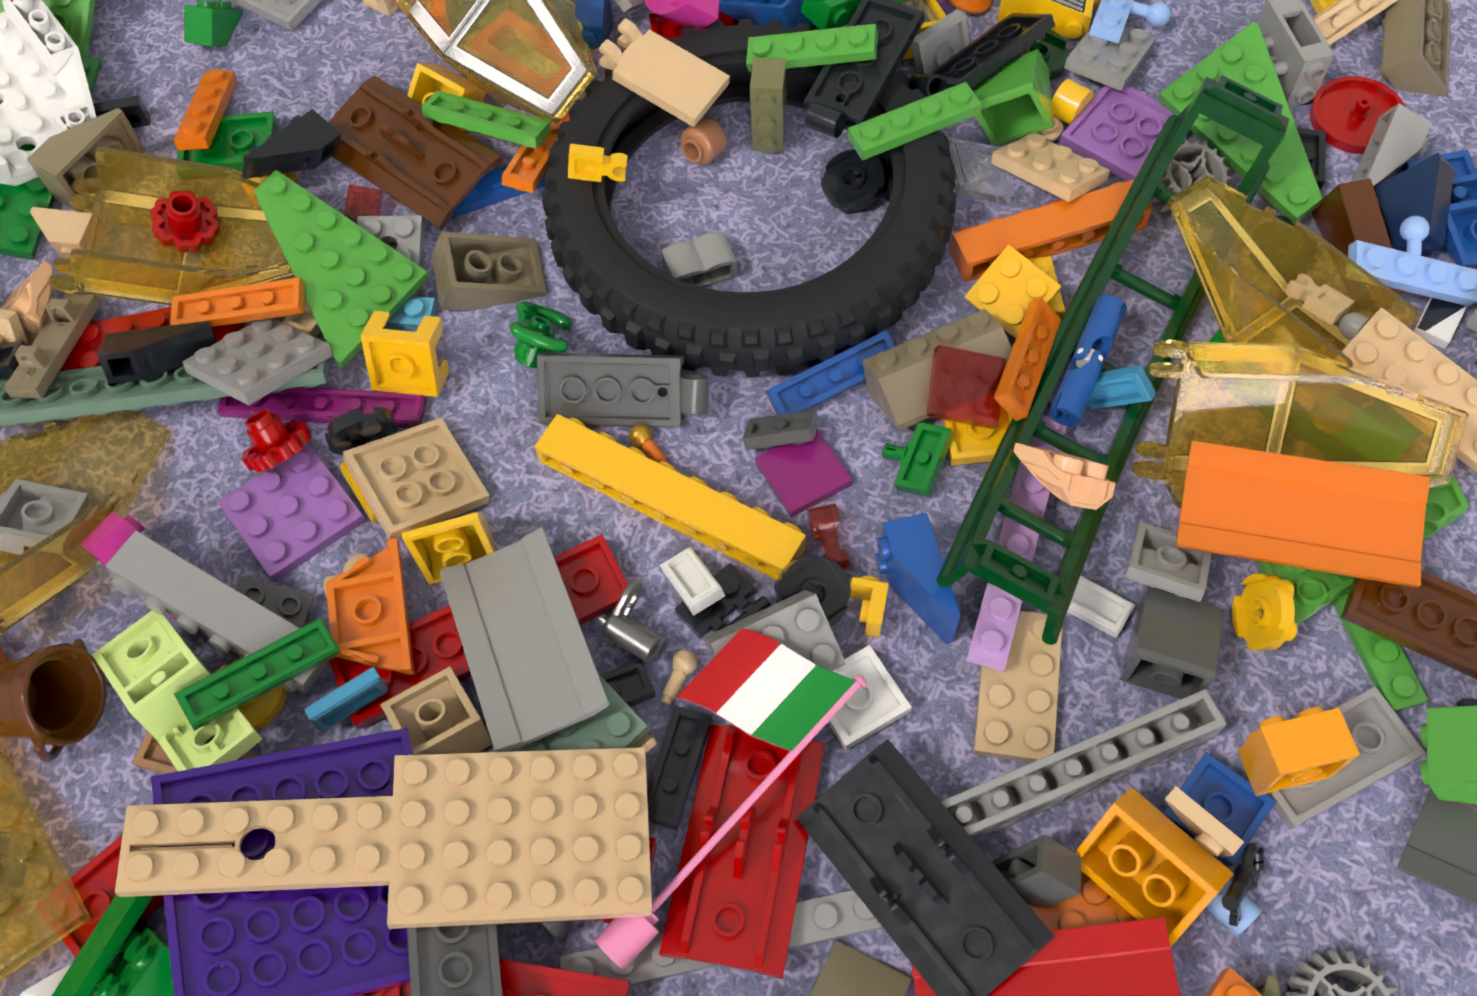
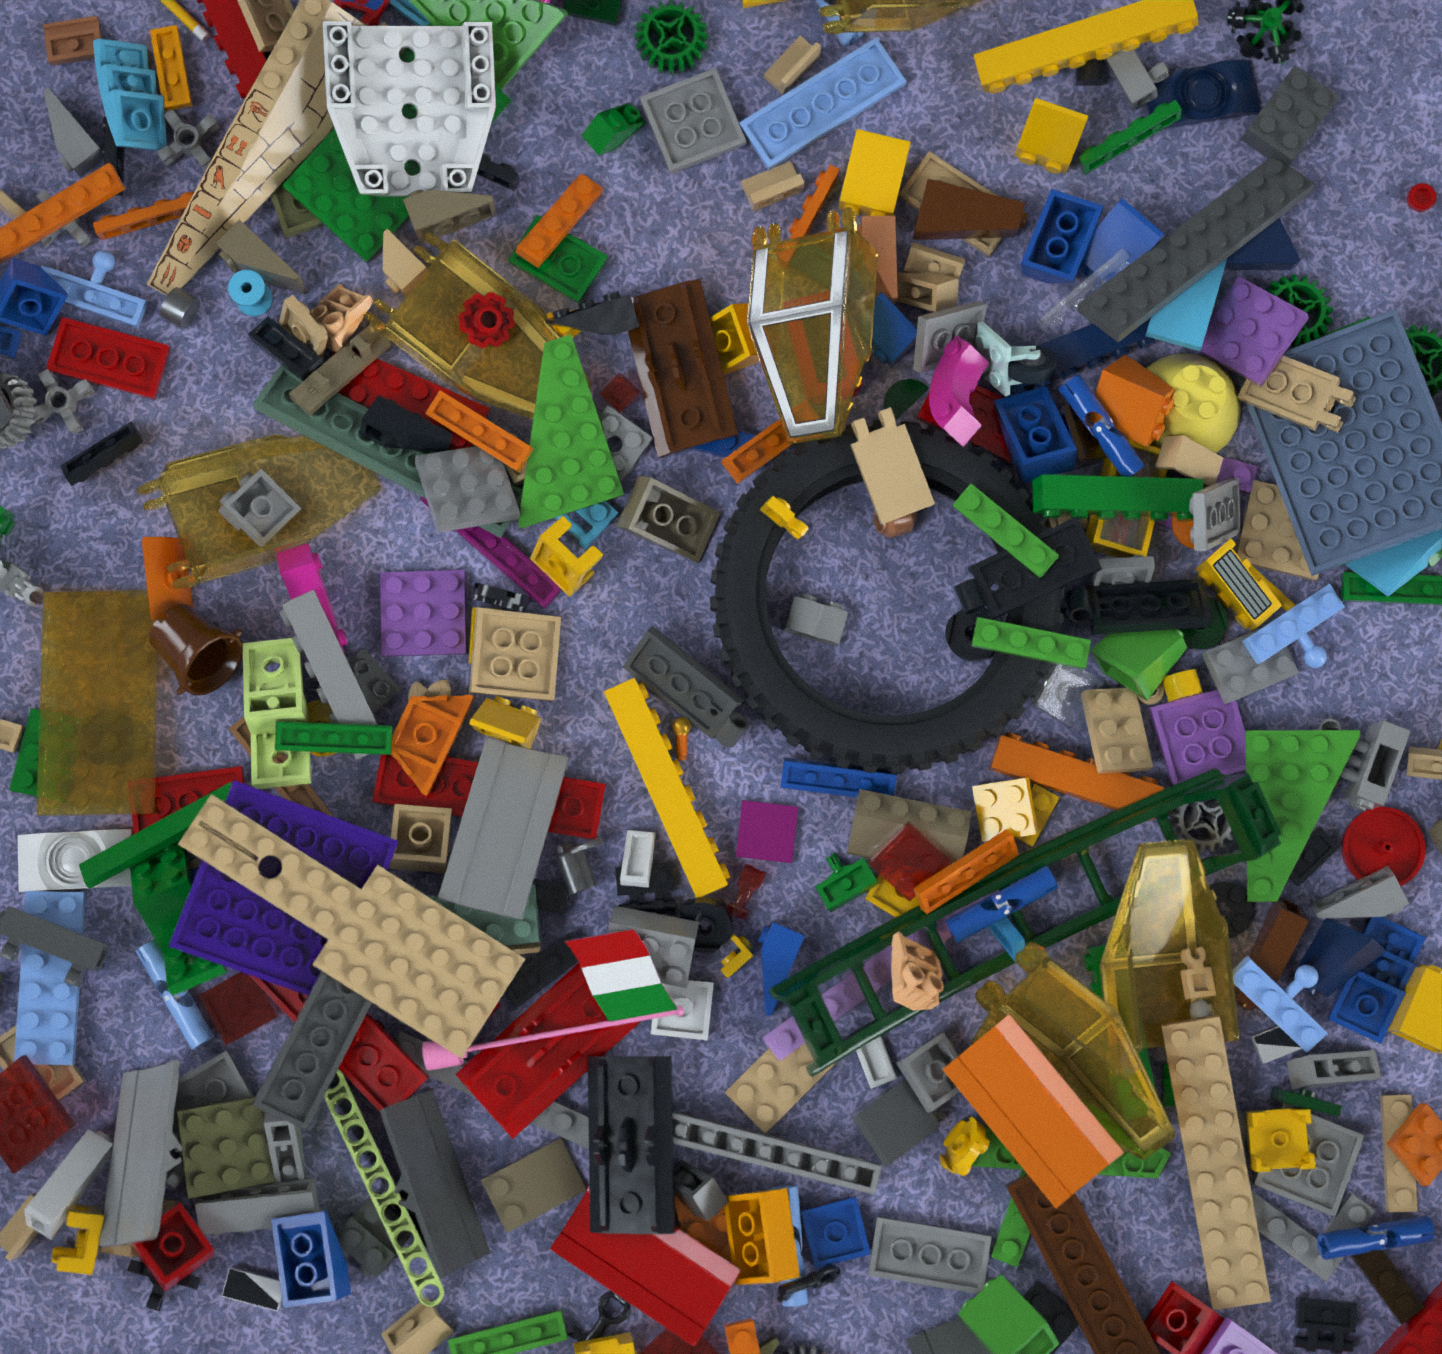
camera: 30 degrees right, 20 degrees up
(273, 440) = (441, 561): red plant -> none
(346, 699) = (376, 787): dark azure tile -> none
(486, 119) = (746, 395): bright green plate -> none
(535, 332) = (664, 601): green piece -> none
(684, 664) = (595, 908): tan piece -> none
(768, 104) = (953, 537): olive brick -> none
(781, 429) = (771, 795): dark grey plate -> none
(1207, 829) = (807, 1246): tan wing -> none
(1297, 750) = (898, 1241): light orange brick -> none

